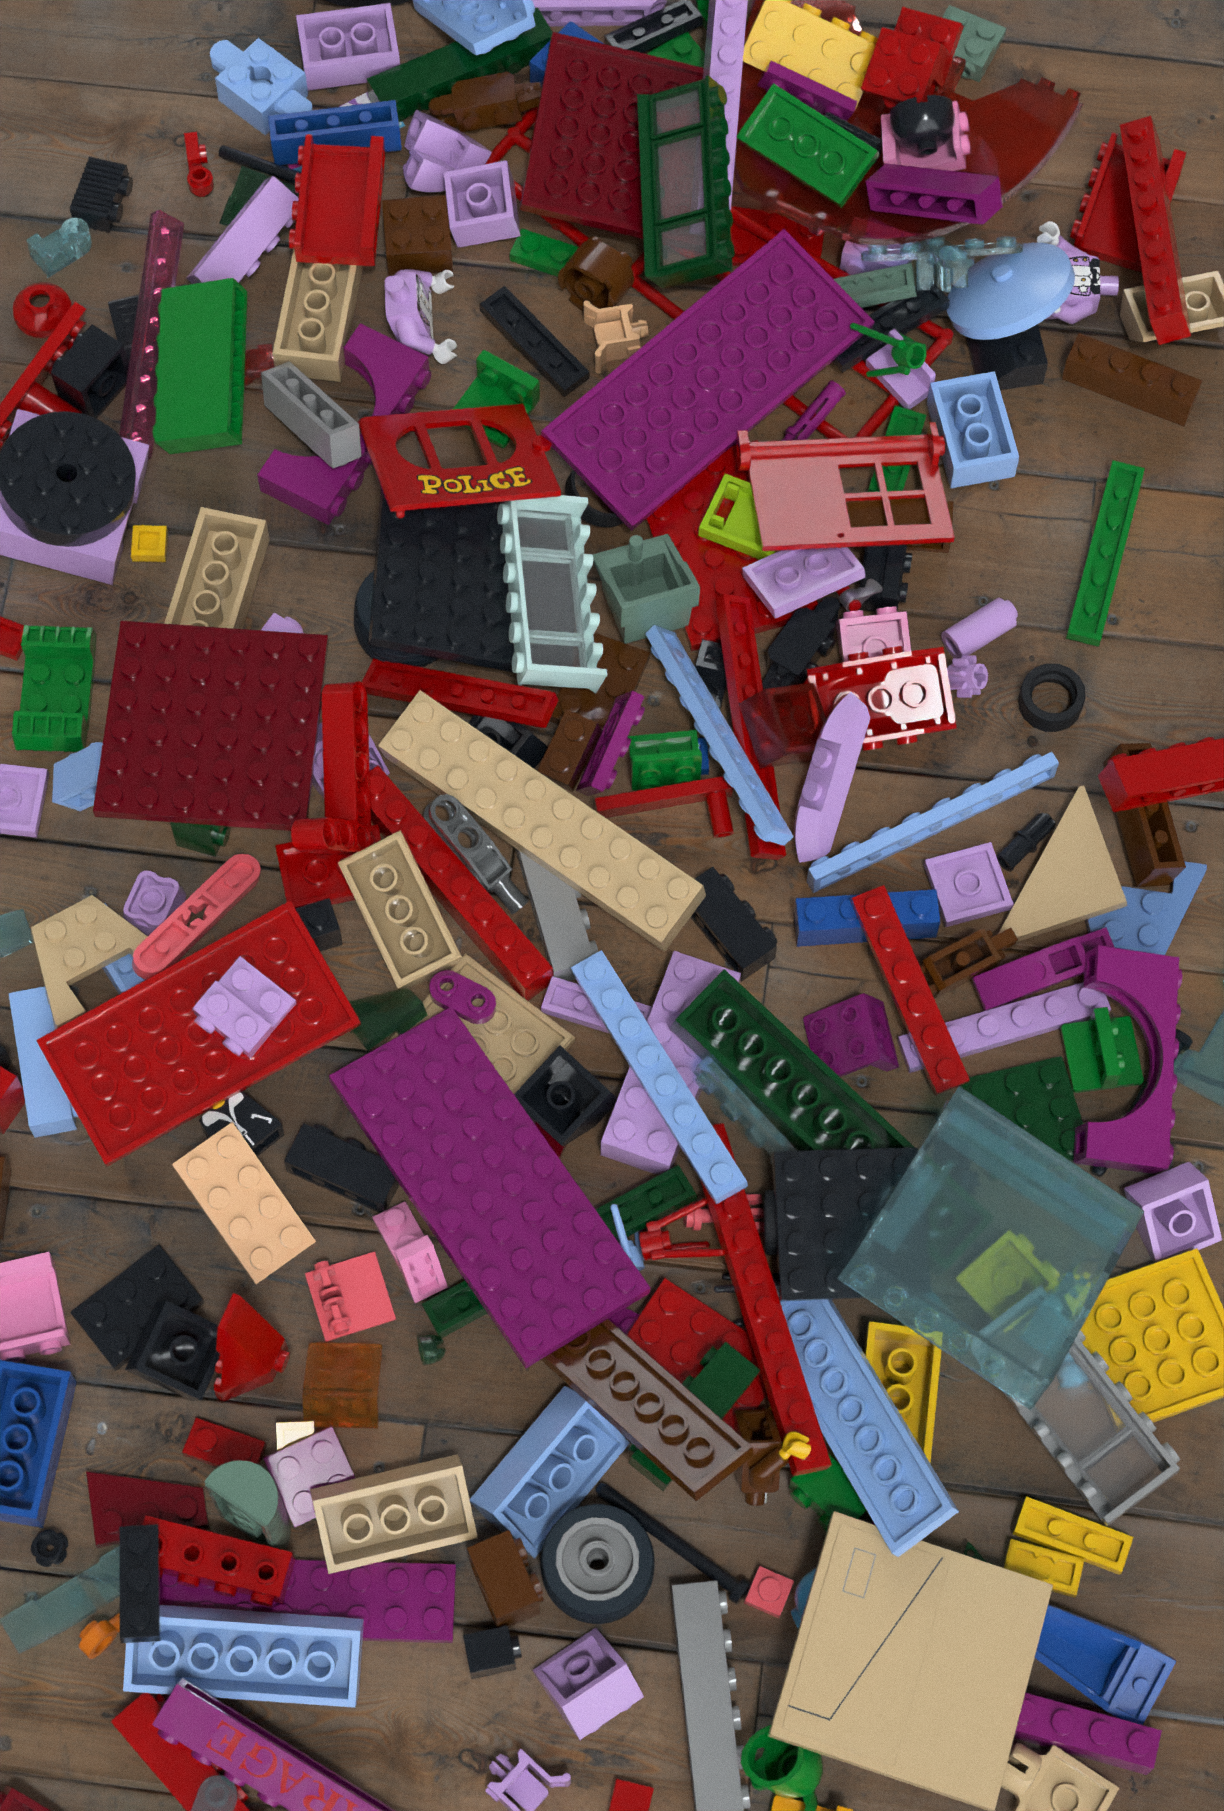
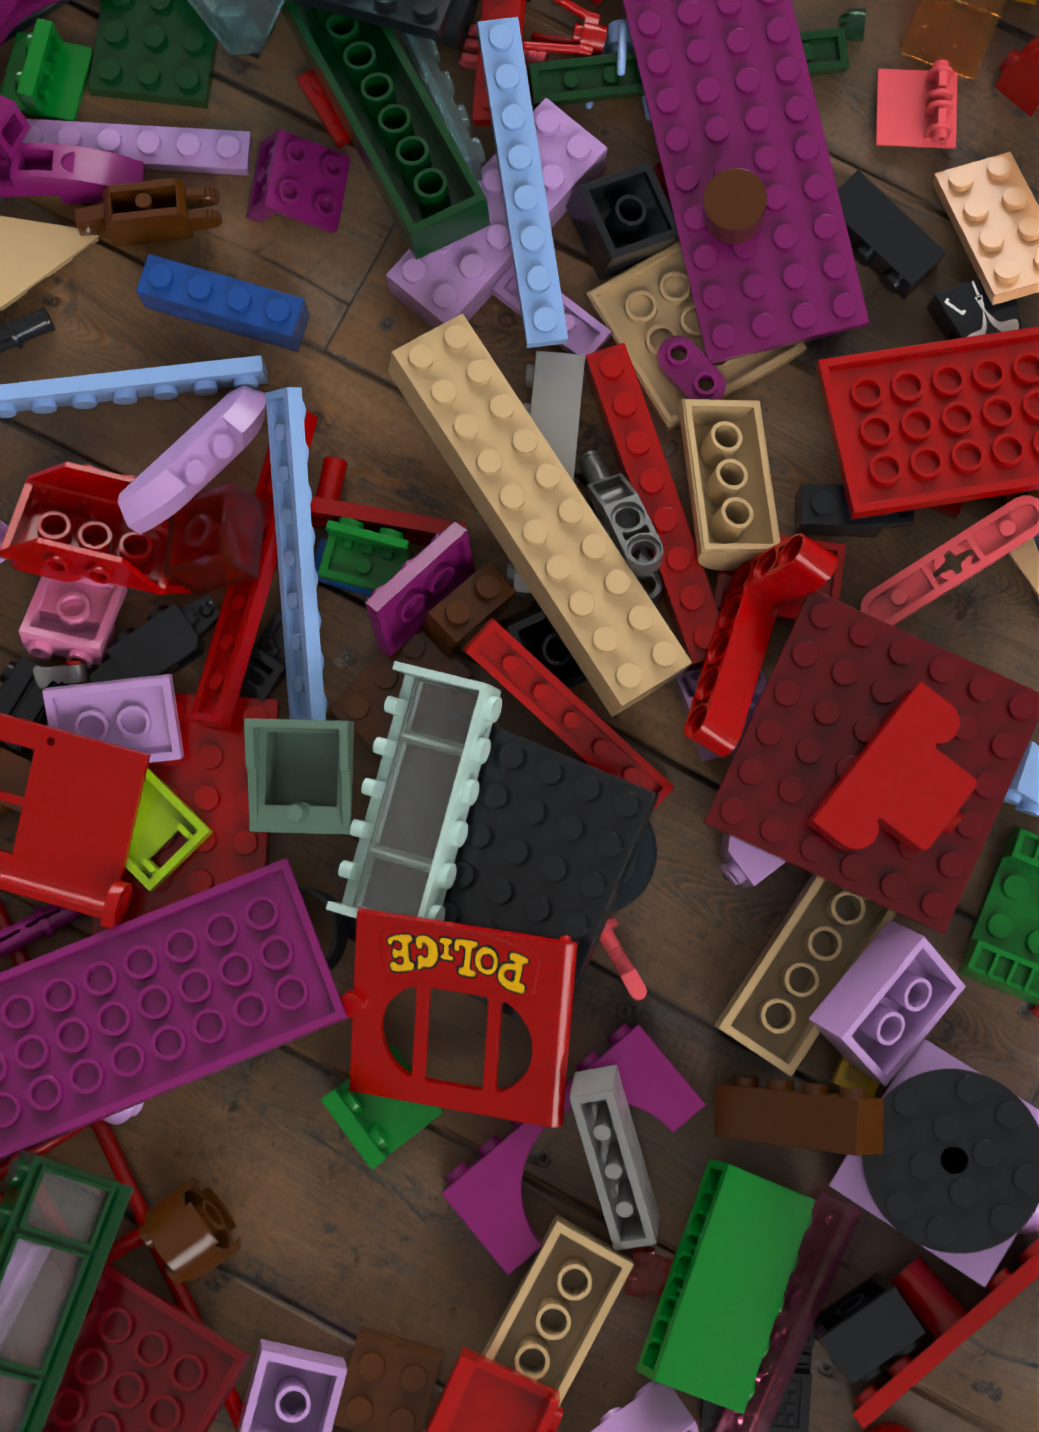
camera: 155 degrees left, 15 degrees up
(146, 570) = (887, 1002): none -> lavender brick
(152, 901) = (989, 612): lavender piece -> none
(187, 476) = (800, 1117): none -> reddish brown brick
(191, 698) = (900, 780): none -> red brick
(243, 1008) = (947, 407): lavender plate -> none
(341, 544) = (622, 964): none -> coral hinge
(386, 1014) = (786, 384): clear green slope -> none
(410, 310) = (437, 1274): lavender torso -> none
(411, 1251) = (844, 123): bright pink bracket -> none
(473, 1111) = (734, 205): none -> reddish brown piece
(534, 341) = (301, 1179): black plate -> none
(541, 252) = (239, 1303): green plate -> none
(614, 332) = (198, 1150): light nougat piece -> none
(732, 926) = (370, 340): black brick -> none
(909, 990) = (214, 193): red plate -> none
(968, 884) = (97, 306): lavender plate -> none

